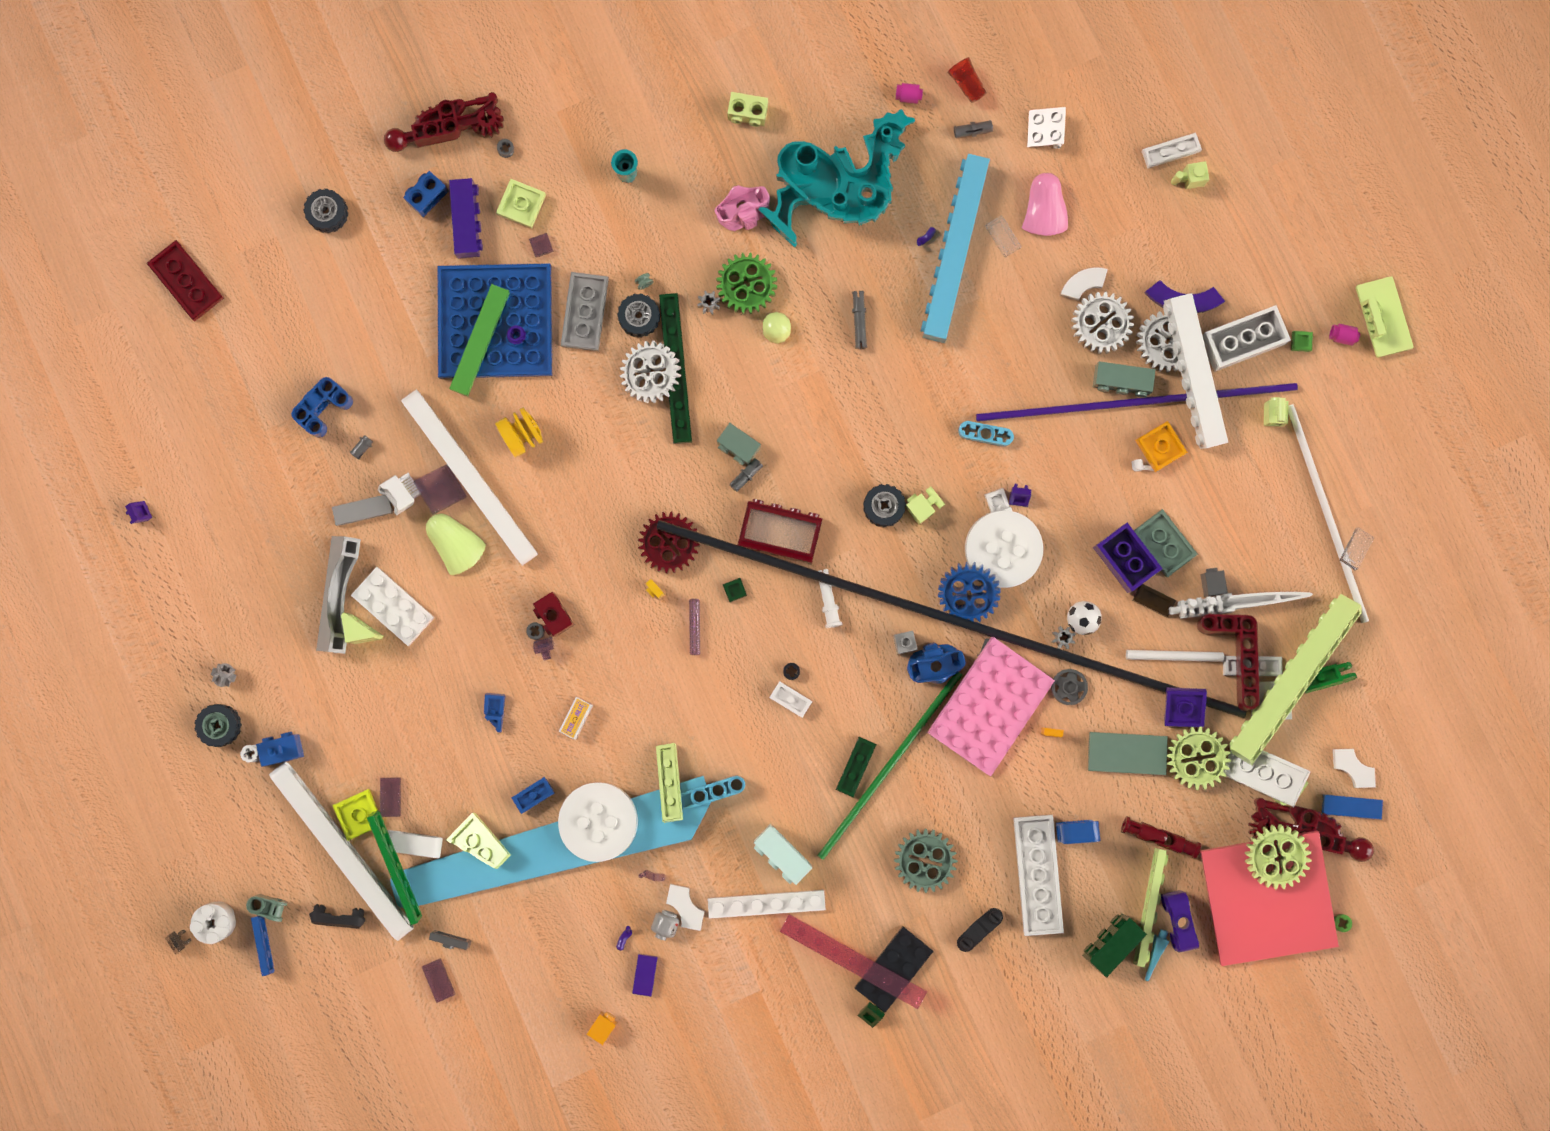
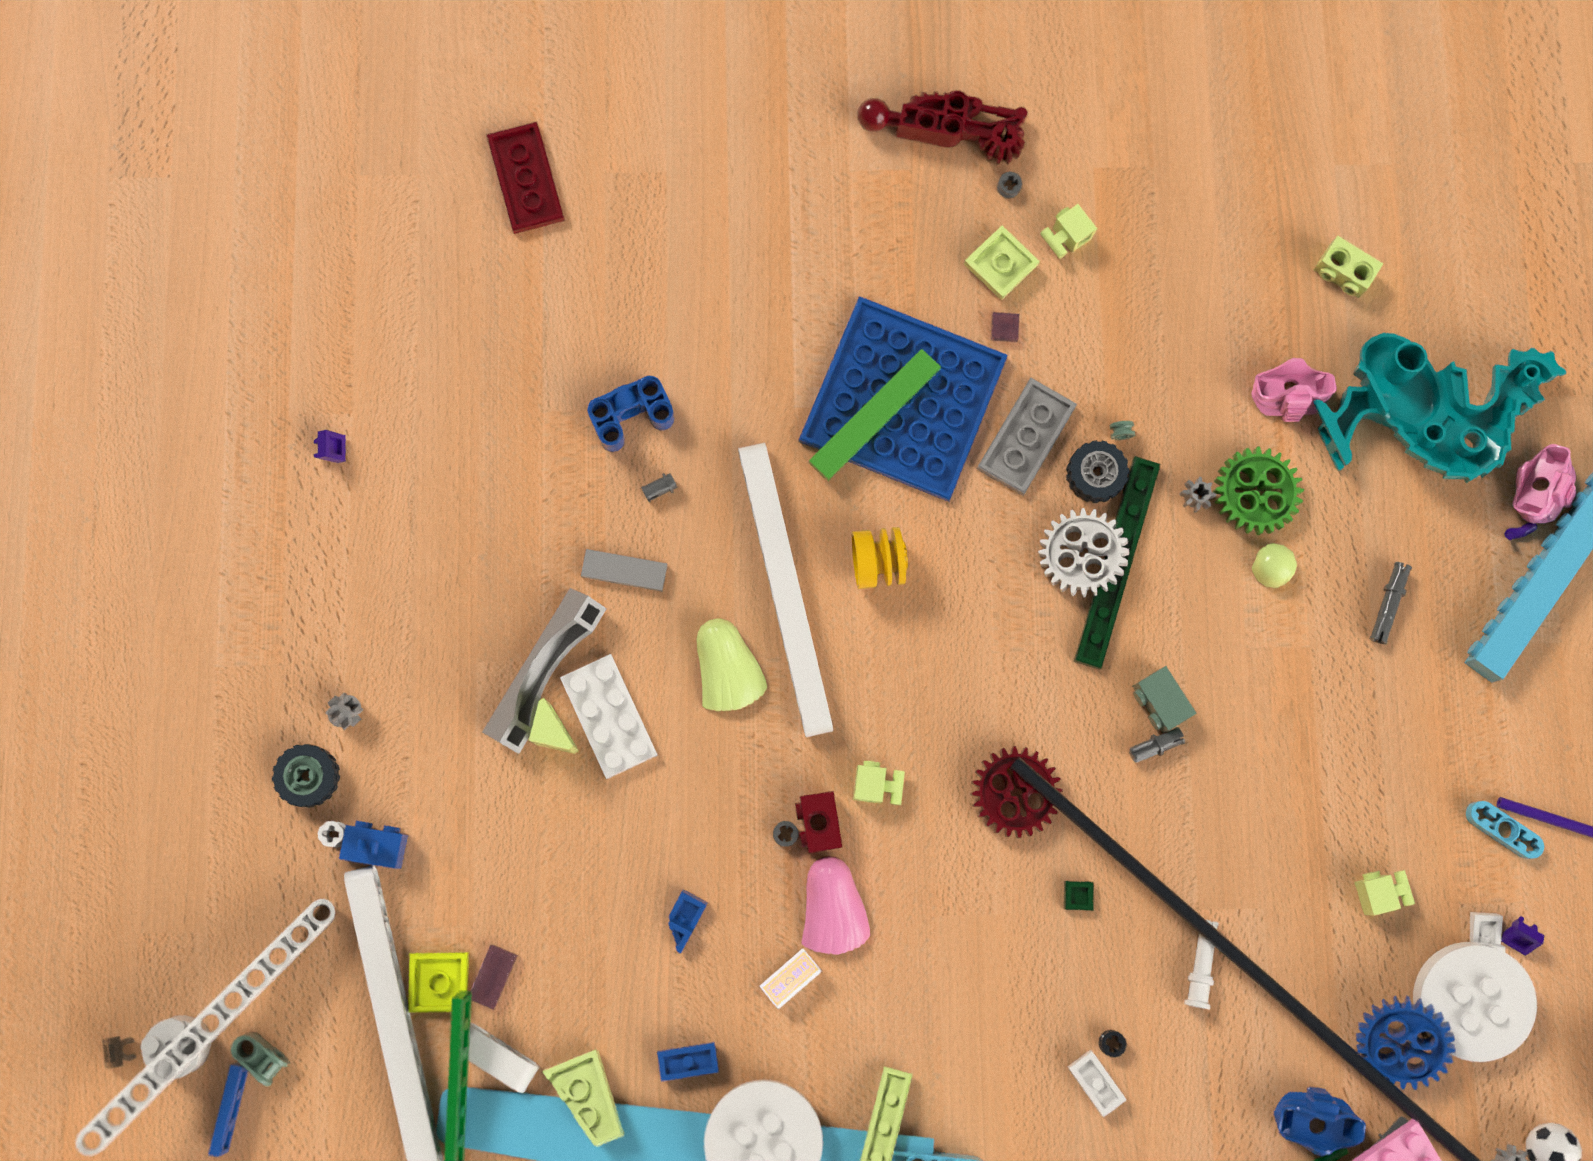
camera: 15 degrees right, 5 degrees down
(226, 908) = (195, 1030): none -> white beam
(319, 202) = (738, 153): black wheel -> none
(319, 917) = (368, 1131): black piece -> none
(400, 492) = (685, 568): white piece -> none
(430, 197) = (887, 204): blue brick -> none
(440, 489) = (739, 587): tile -> none
(465, 219) = (921, 250): dark purple brick -> none
(514, 329) = (928, 420): dark purple plate -> none
(544, 646) = (789, 861): tile -> none
(558, 161) = (1071, 228): none -> yellowish green brick
(576, 578) = (871, 784): none -> yellowish green brick
(585, 664) = (834, 909): none -> bright pink hair
(625, 165) = (1163, 270): teal plant -> none
(653, 589) = (970, 847): yellow plate -> none
(694, 626) = (1003, 923): axle -> none
(780, 531) = (1174, 842): window -> none
(886, 516) = (1314, 862): black wheel -> none
(905, 642) = (1287, 1073): light grey brick -> none
(909, 93) = (1569, 335): dark pink brick -> none
(935, 191) = (1554, 466): none -> bright pink piece

